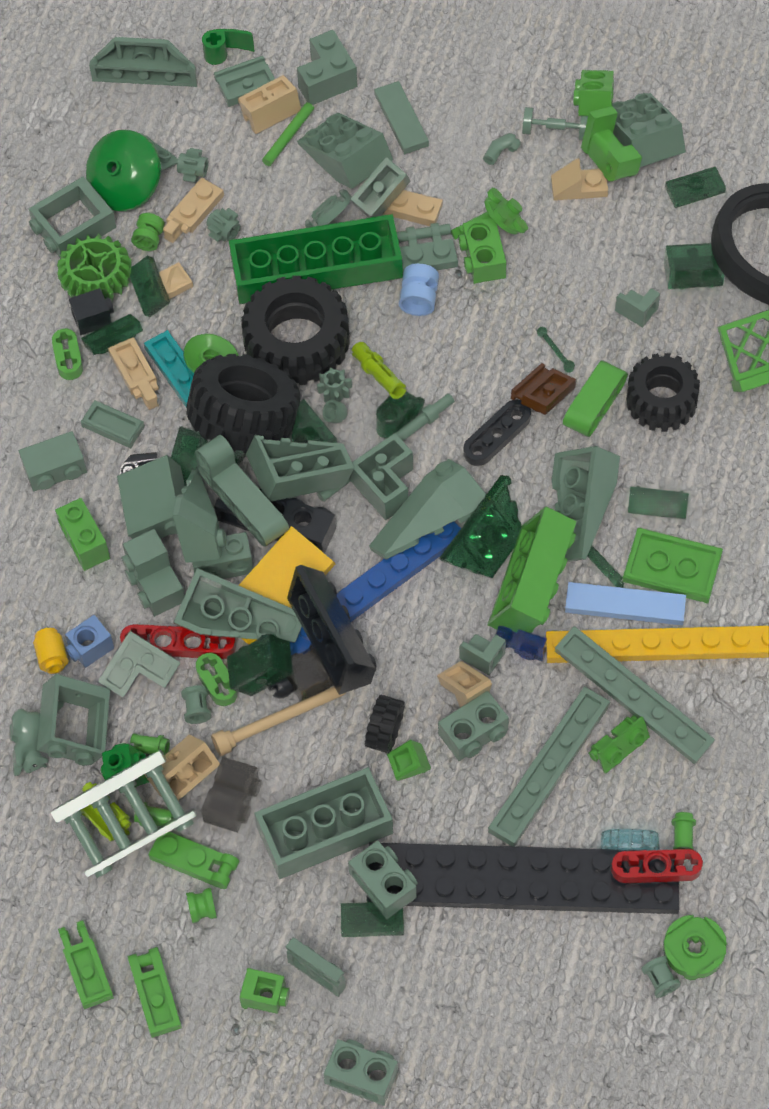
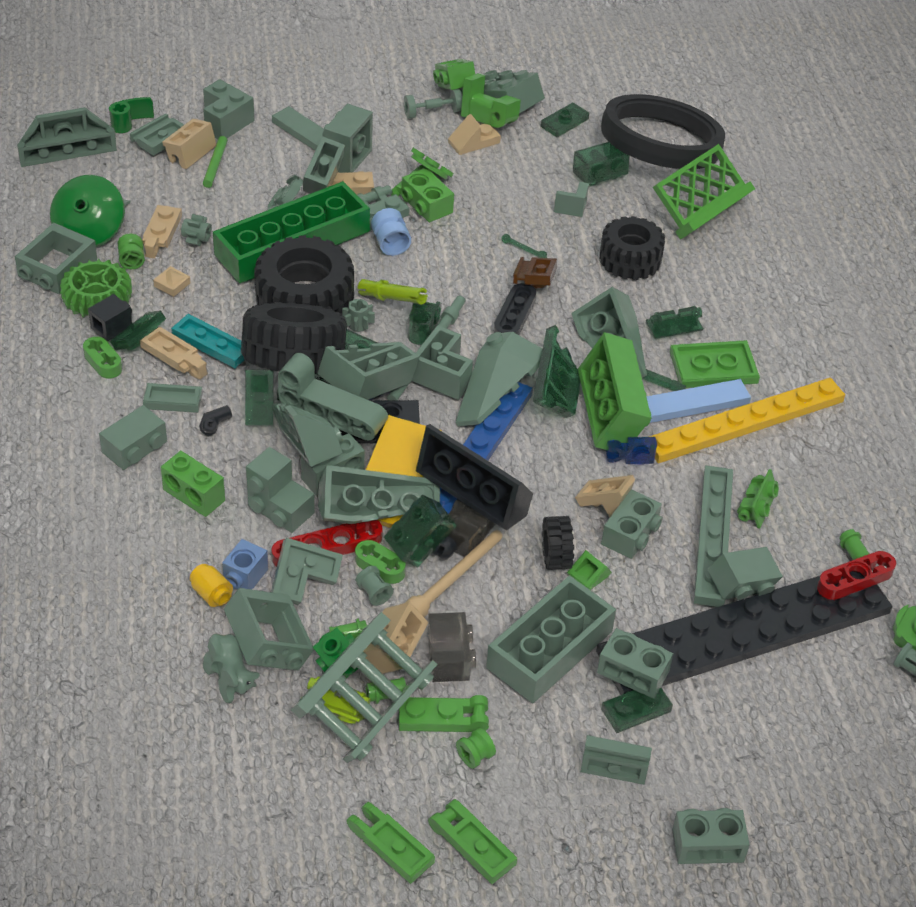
camera: 30 degrees left, 15 degrees down
(148, 286) = (153, 288): clear green plate -> none
(150, 496) = (246, 432): sand green brick -> none
(192, 165) = (146, 196): sand green gear -> none
(205, 347) = (229, 320): bright green dish -> none
(257, 983) = (578, 800): bright green brick -> none
(334, 411) = (364, 328): sand green hinge -> none
(346, 149) = (273, 156): sand green slope -> none
(431, 153) = (354, 129): none -> sand green brick
(483, 653) = (602, 469): sand green panel -> none
(498, 145) = (401, 123): sand green arm -> none
(546, 823) = (745, 573): none -> sand green brick
(595, 398) = (579, 268): bright green beam -> none
(630, 839) = (815, 565): clear light blue beam -> none
(634, 695) = (751, 457): sand green plate -> none

